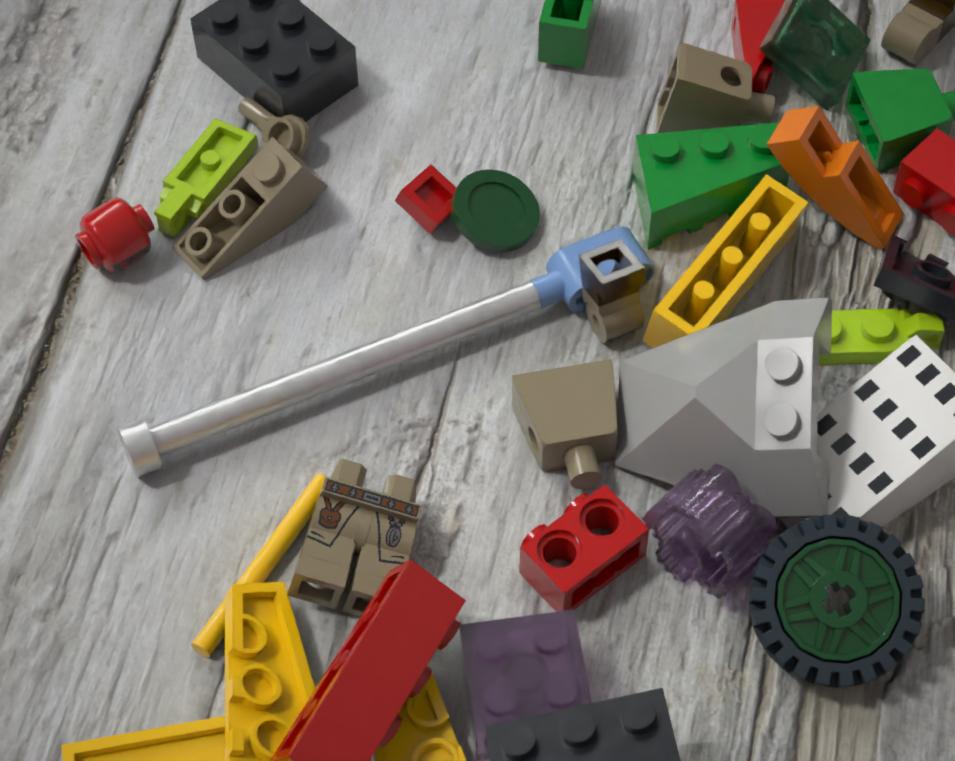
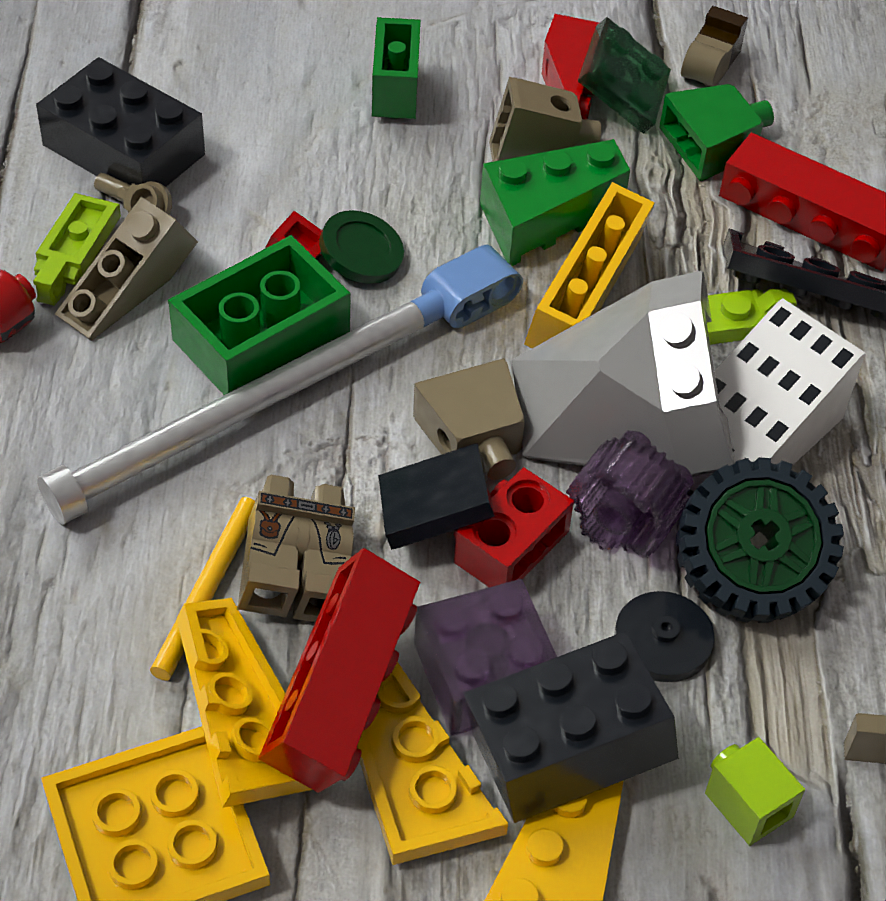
camera: 15 degrees left, 5 degrees down
(372, 278) = (259, 315): none -> green brick
(508, 502) = (435, 496): none -> black tile
(614, 298) = (491, 304): leg -> none
(718, 686) = (668, 633): none -> black piece
(836, 174) = (671, 179): orange slope -> none

